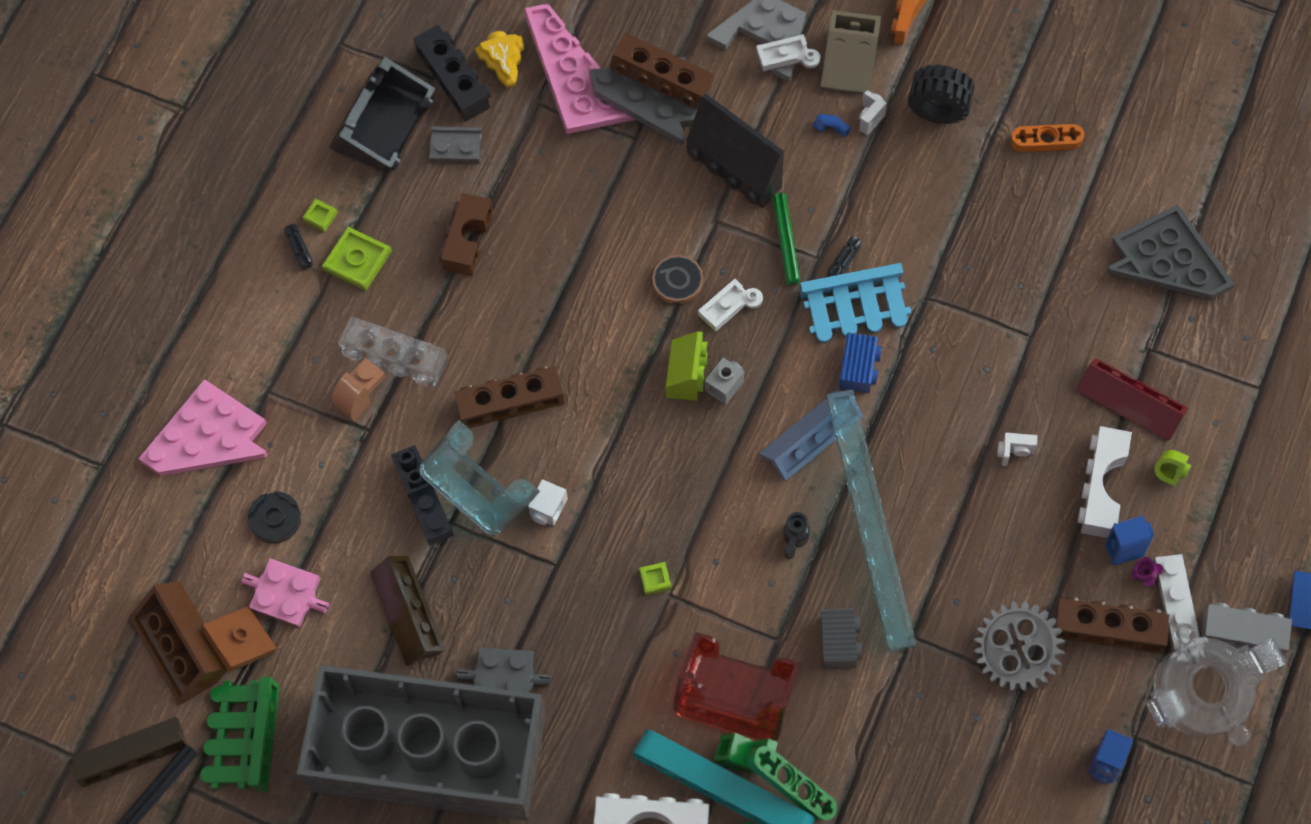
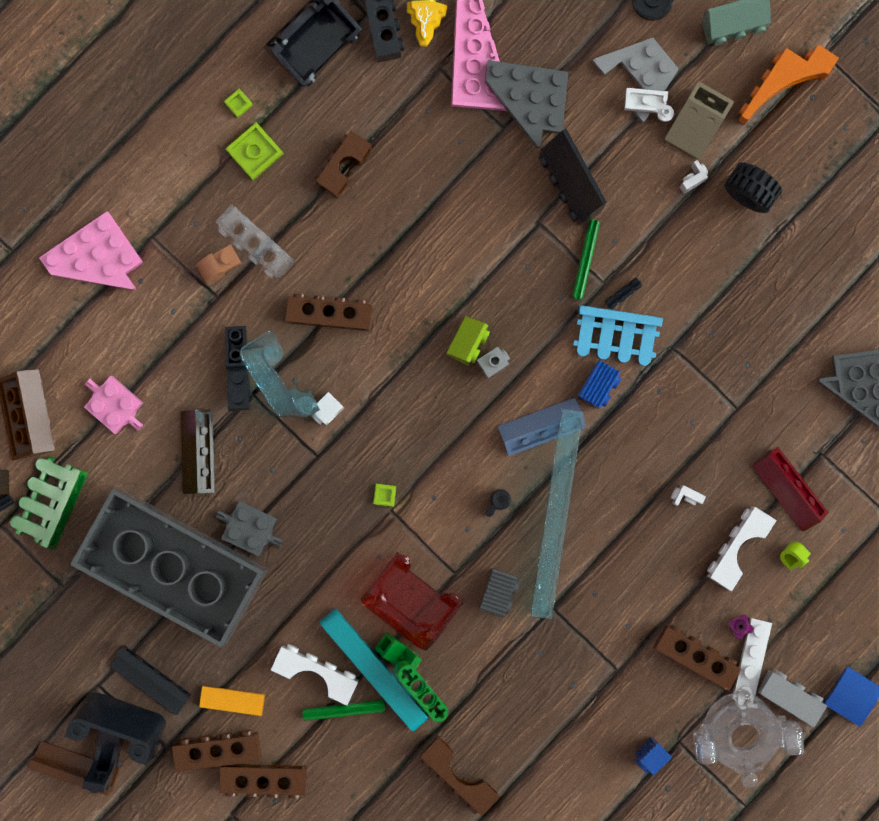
camera: 15 degrees right, 20 degrees up
(238, 638) = (68, 430): dark orange plate -> none
(274, 517) = (125, 341): black tile -> none
(298, 246) = (213, 124): black axle -> none
(455, 145) = (362, 81): flat silver plate -> none
(654, 60) = (542, 73): reddish brown brick -> none
(677, 279) = (490, 262): black tile -> none
(729, 303) = (521, 297): white hinge -> none
(832, 121) = (661, 173): blue arm -> none
(1039, 145) = (833, 259): orange beam -> none
(1041, 636) = (605, 647): light grey gear -> none
(1129, 540) = (737, 602): blue brick -> none

